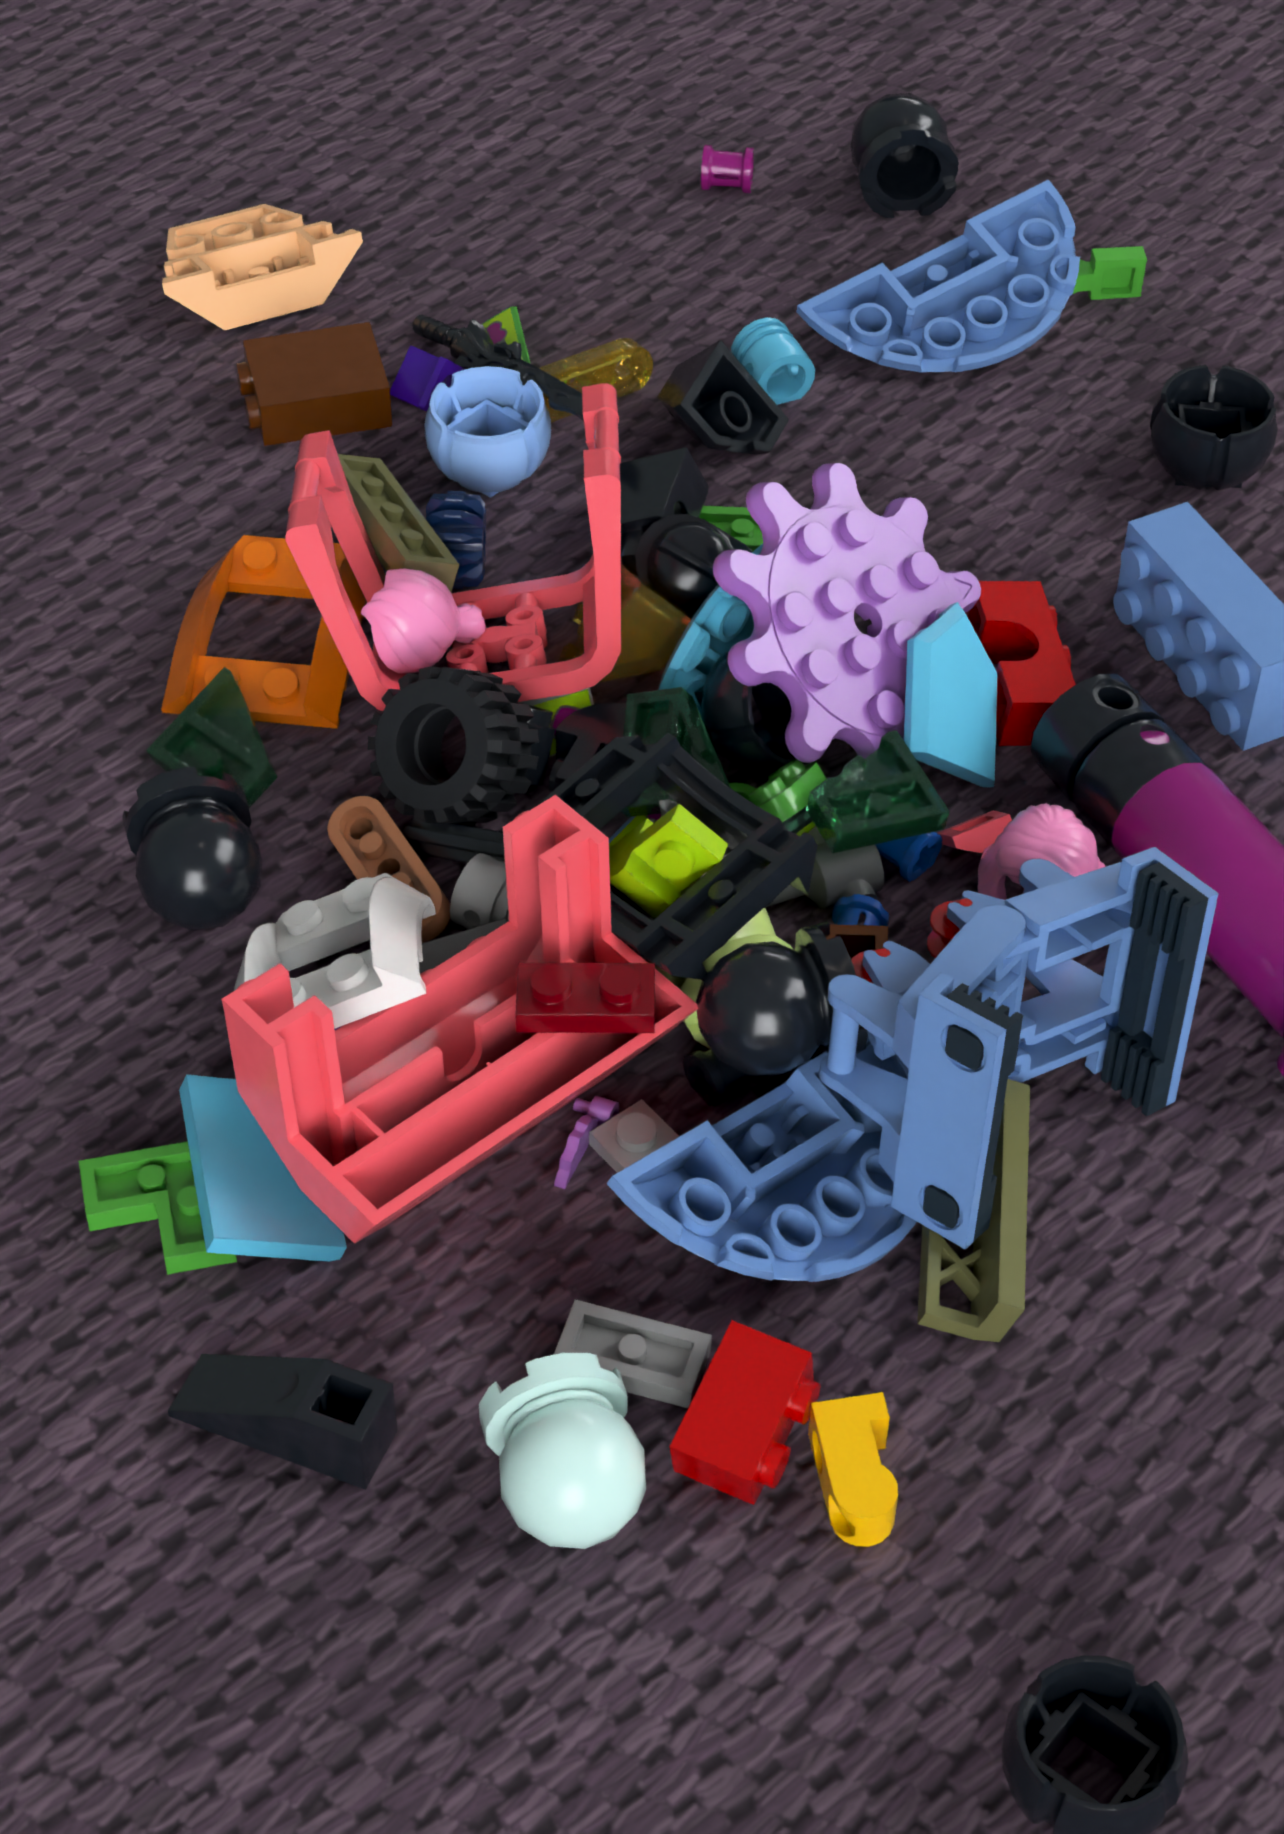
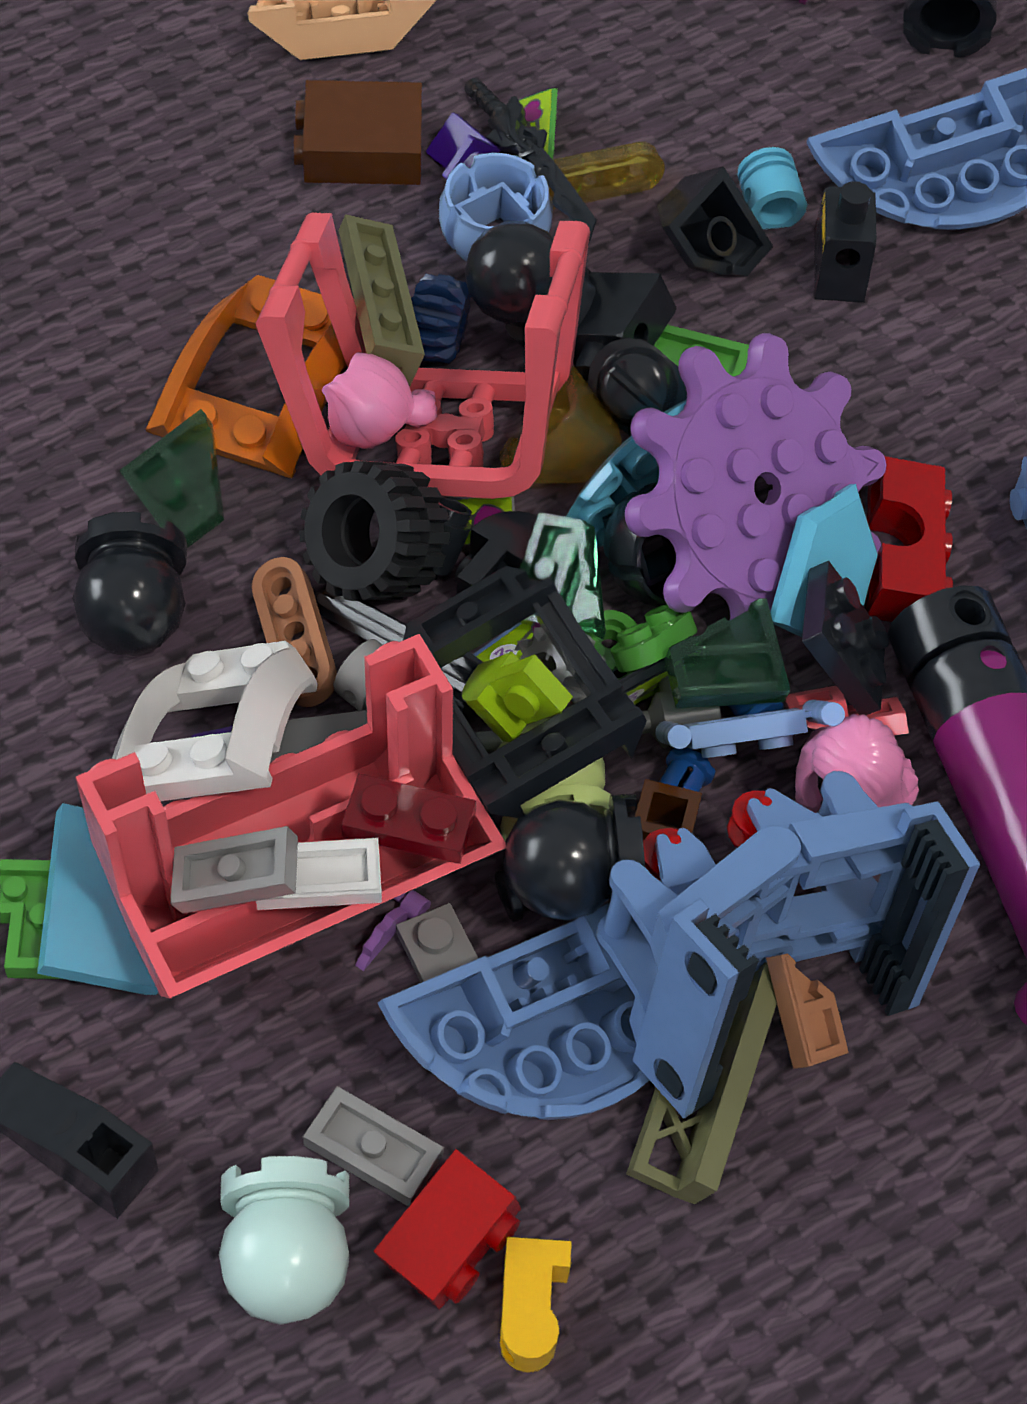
camera: 10 degrees right, 10 degrees up
(414, 1076) = (234, 870): none -> light grey plate
(502, 1070) = (333, 875): none -> white tile
(535, 483) = (509, 269): none -> black tile
(861, 370) = (845, 222): none -> black torso
(939, 852) = (770, 728): none -> light blue plate
(987, 750) = (845, 638): none -> black plate
(1063, 1123) = (807, 1014): none -> nougat tile

